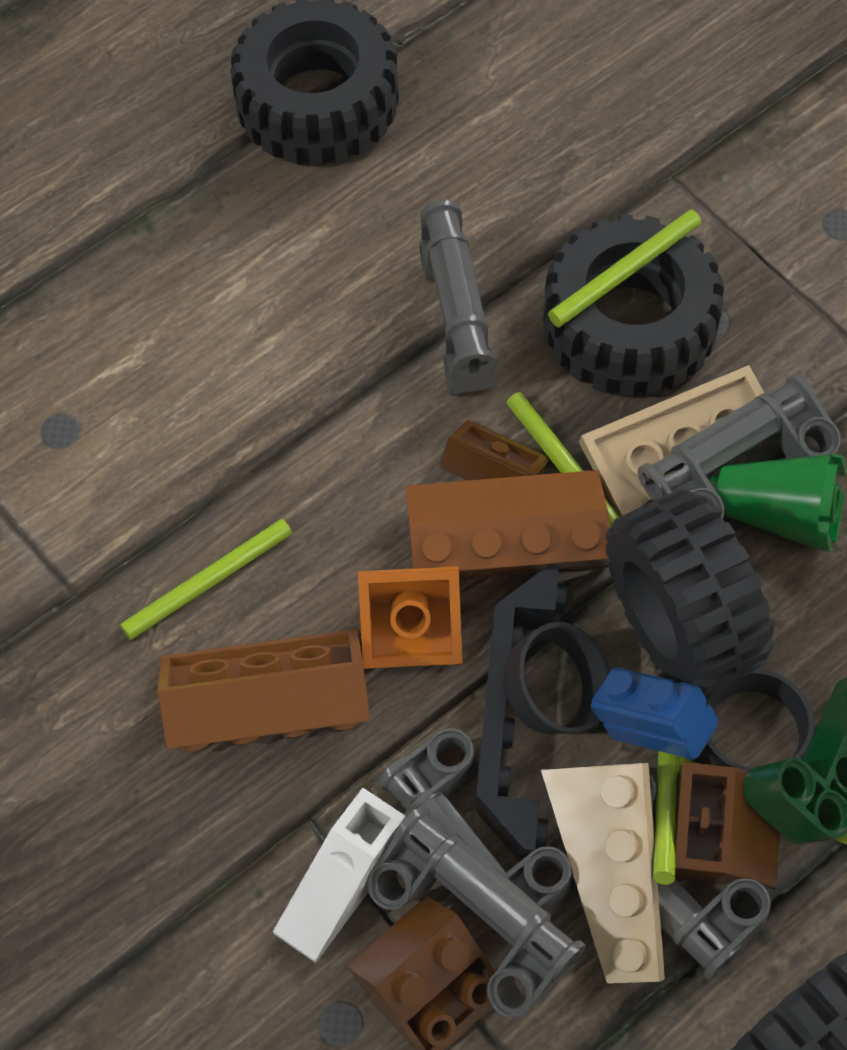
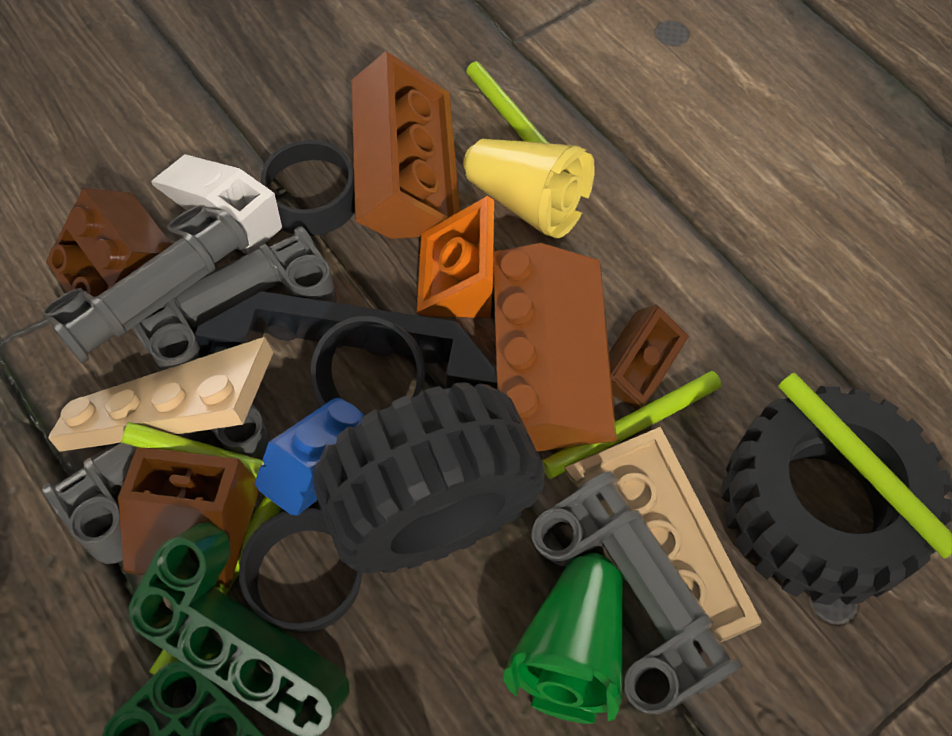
camera: 90 degrees right, 0 degrees up
(295, 831) = (320, 219): none -> black tyre
(305, 553) = (533, 180): none -> light yellow cone
(447, 260) = (887, 310): dark grey piece -> none

